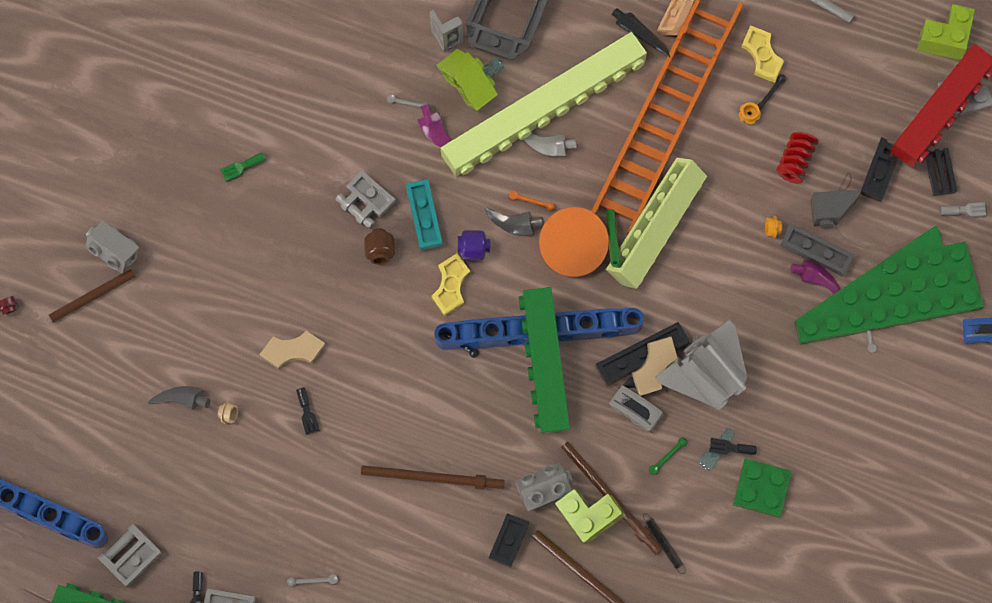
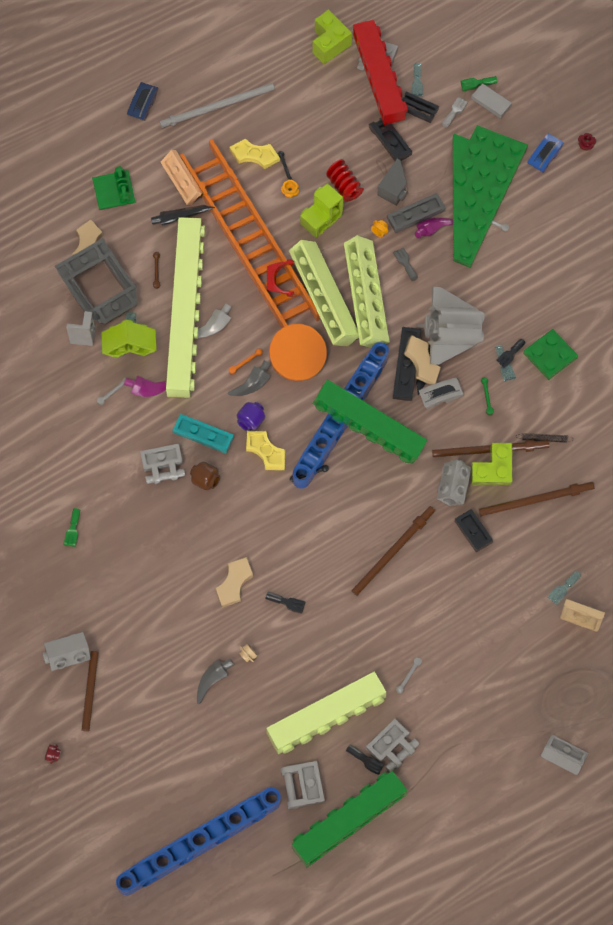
camera: 55 degrees left, 5 degrees down
(216, 527) = (326, 712): none -> yellowish green brick
(551, 63) = (156, 284): none -> reddish brown hinge
(613, 238) = (318, 327): green piece -> none
(638, 160) = (272, 271): none -> red helmet
(688, 261) = (366, 291): none -> yellowish green brick
(744, 161) = (324, 211): none -> lime brick
(757, 273) = (403, 259): none -> dark grey piece
(964, 154) = (417, 86): none -> clear light blue piece

